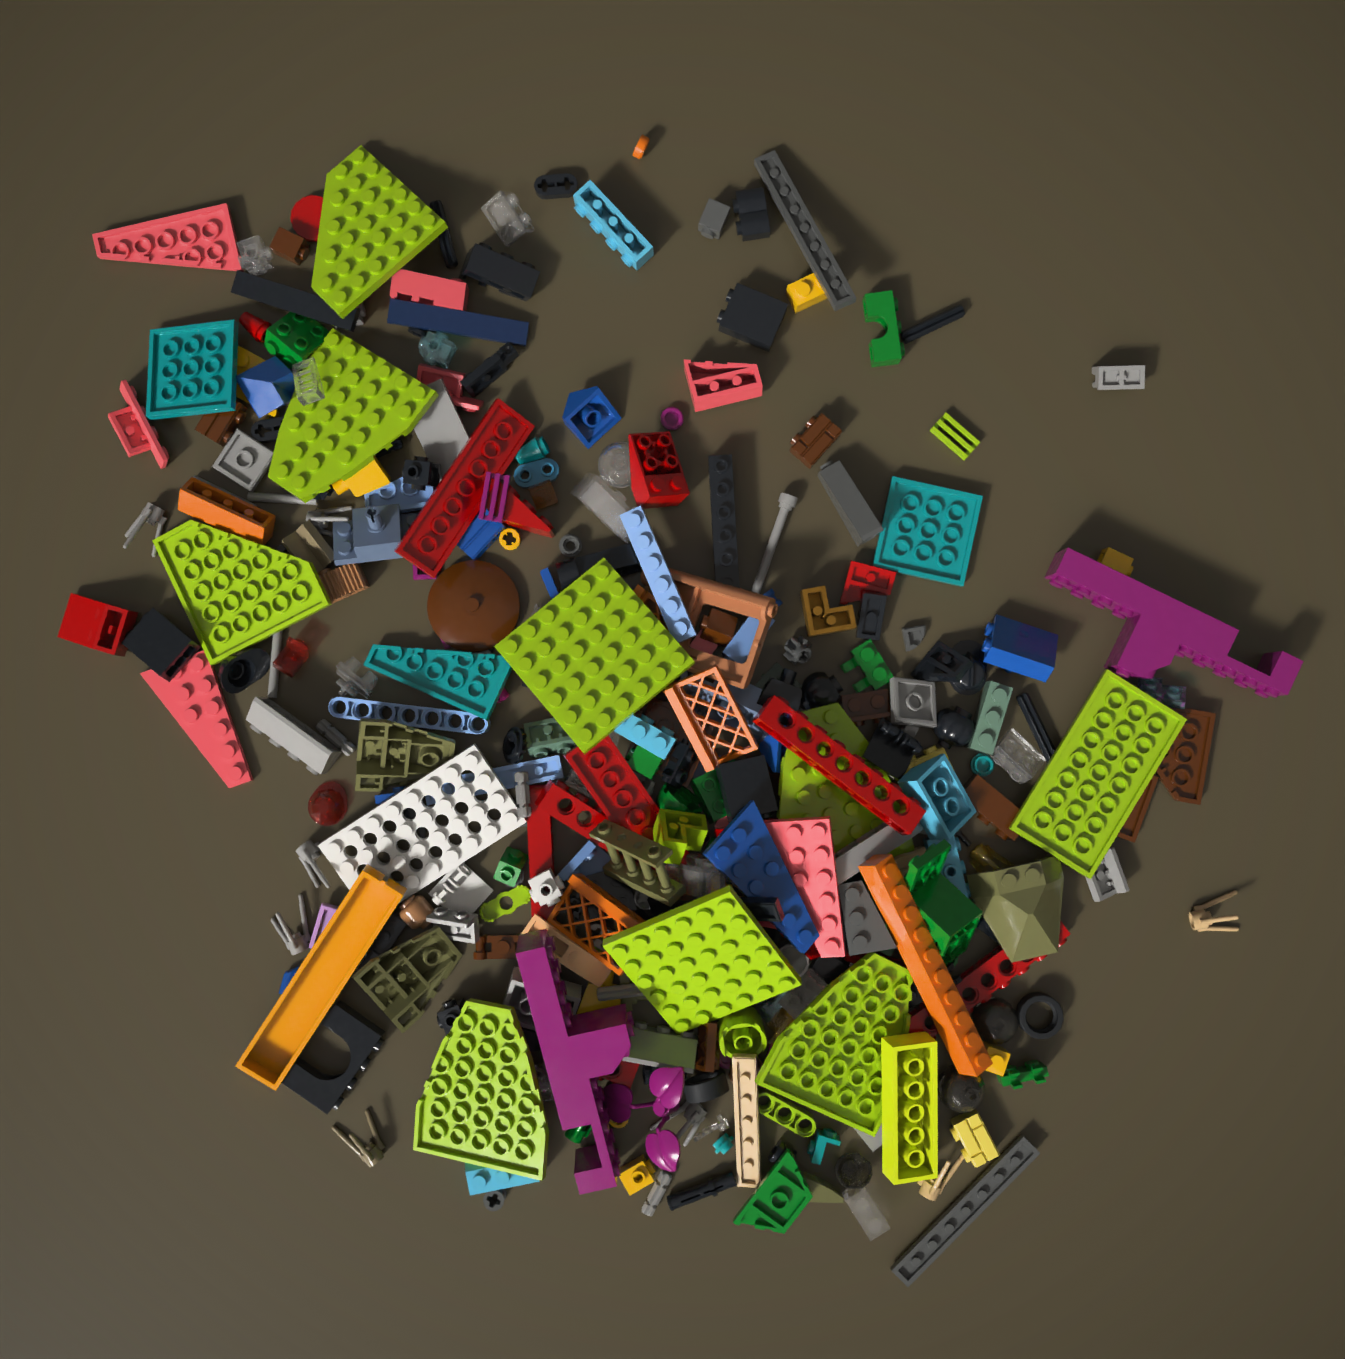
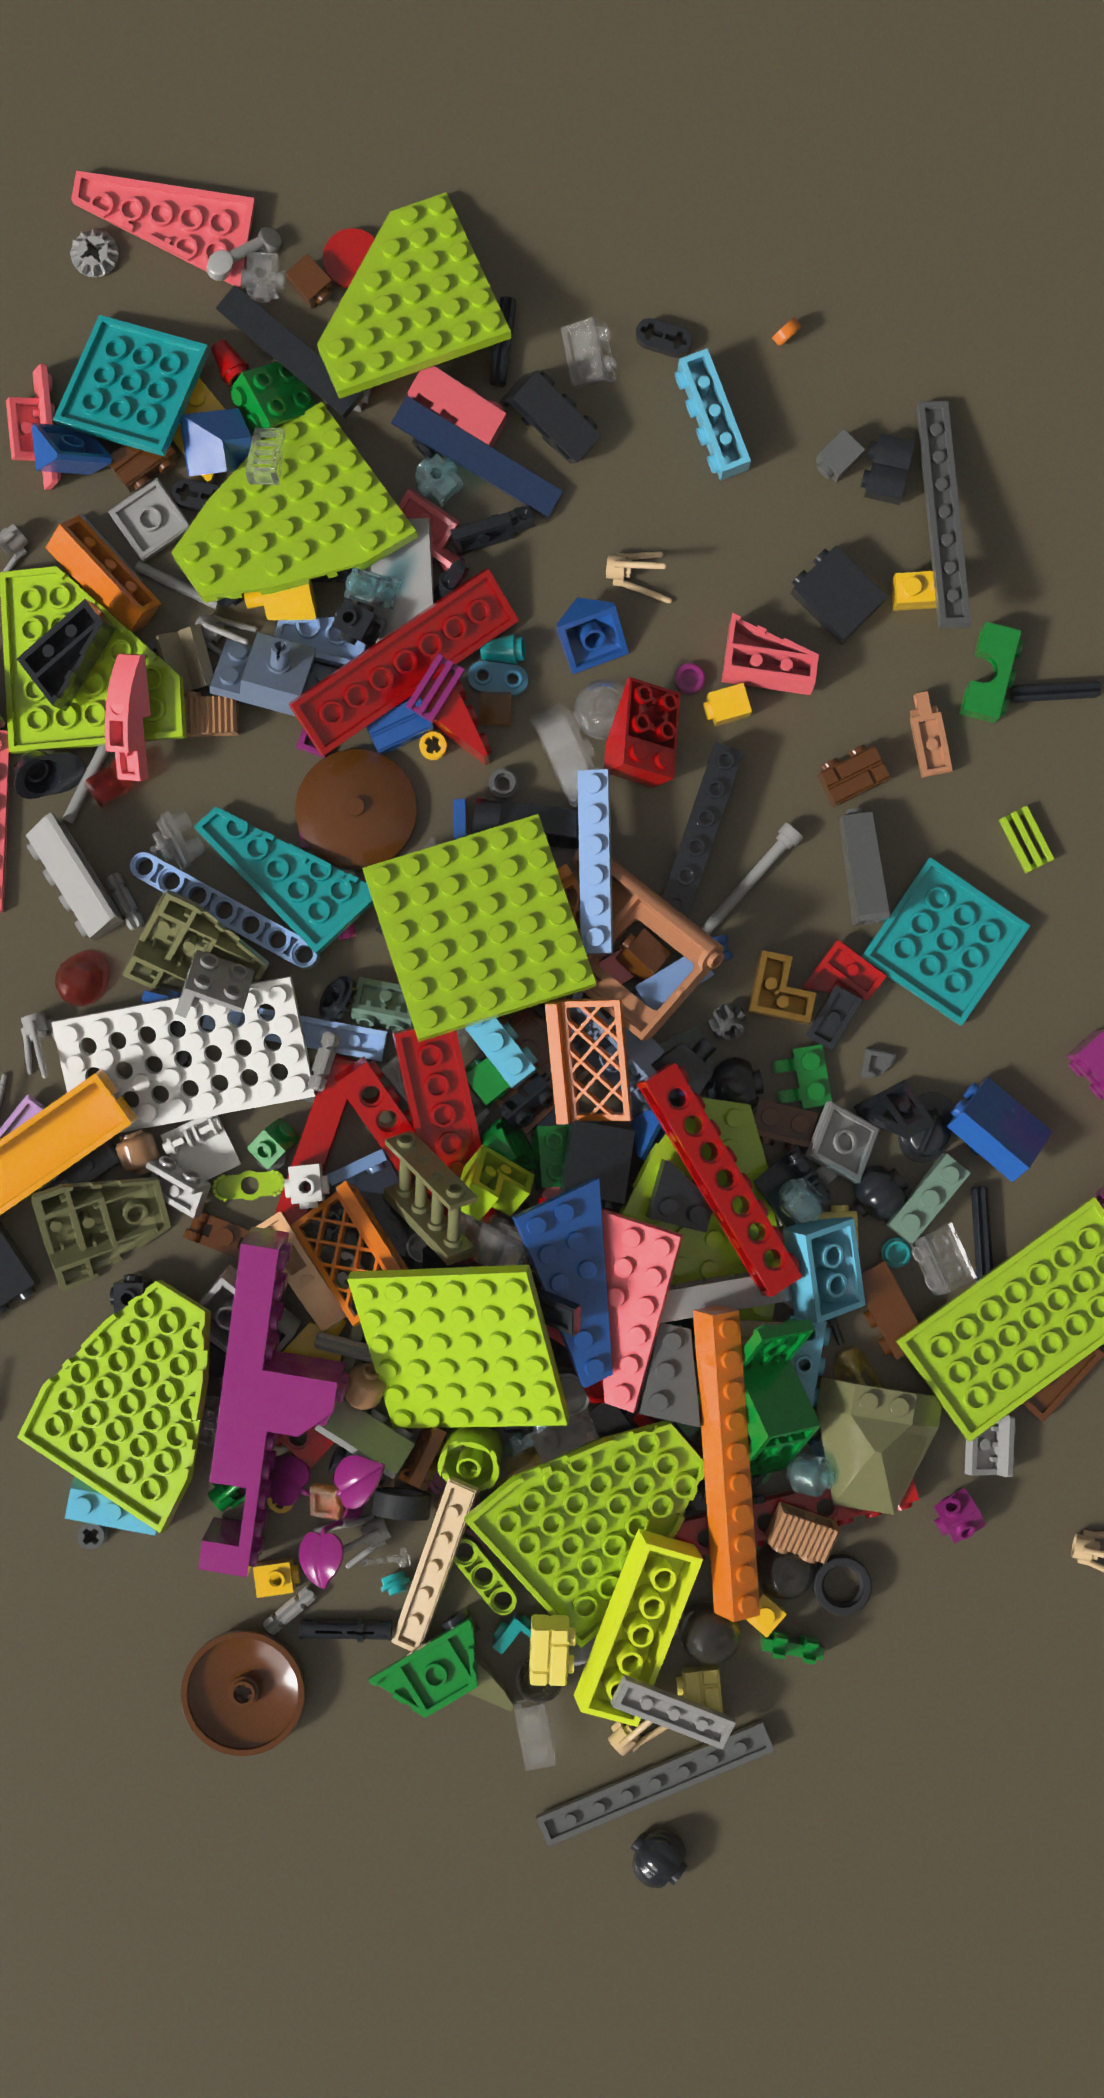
camera: 20 degrees right, 0 degrees up
(129, 298) = (88, 265): none -> light grey gear
(165, 434) = (67, 450): none -> blue slope
(220, 257) = (221, 261): none -> light grey bar
(222, 578) = (68, 653): none -> black wedge
(279, 602) = (124, 714): none -> coral slope
(421, 444) = (372, 588): none -> clear light blue slope
(421, 770) = (215, 982): none -> light grey bracket
(475, 415) = (451, 579): none -> black axle
(591, 358) = (621, 566): none -> tan plant
(645, 1015) = (364, 1387): none -> medium nougat head
(647, 1267) = (243, 1692): none -> reddish brown dish
(650, 1108) = (325, 1502): none -> clear orange tile
(706, 426) = (727, 705): none -> yellow brick
(815, 792) = (678, 1200): none -> black wing
(853, 1148) = (550, 1650): none -> light yellow brick
(857, 392) = (929, 737): none -> nougat hinge
(902, 757) = (800, 1201): none -> clear light blue head
(959, 1157) = (673, 1712): none -> light grey plate
(987, 948) = (810, 1475): none -> clear light blue head
(989, 1263) = (658, 1858): none -> black plant
(998, 992) = (802, 1533): none -> medium nougat brick
(1102, 934) = (958, 1516): none -> magenta brick

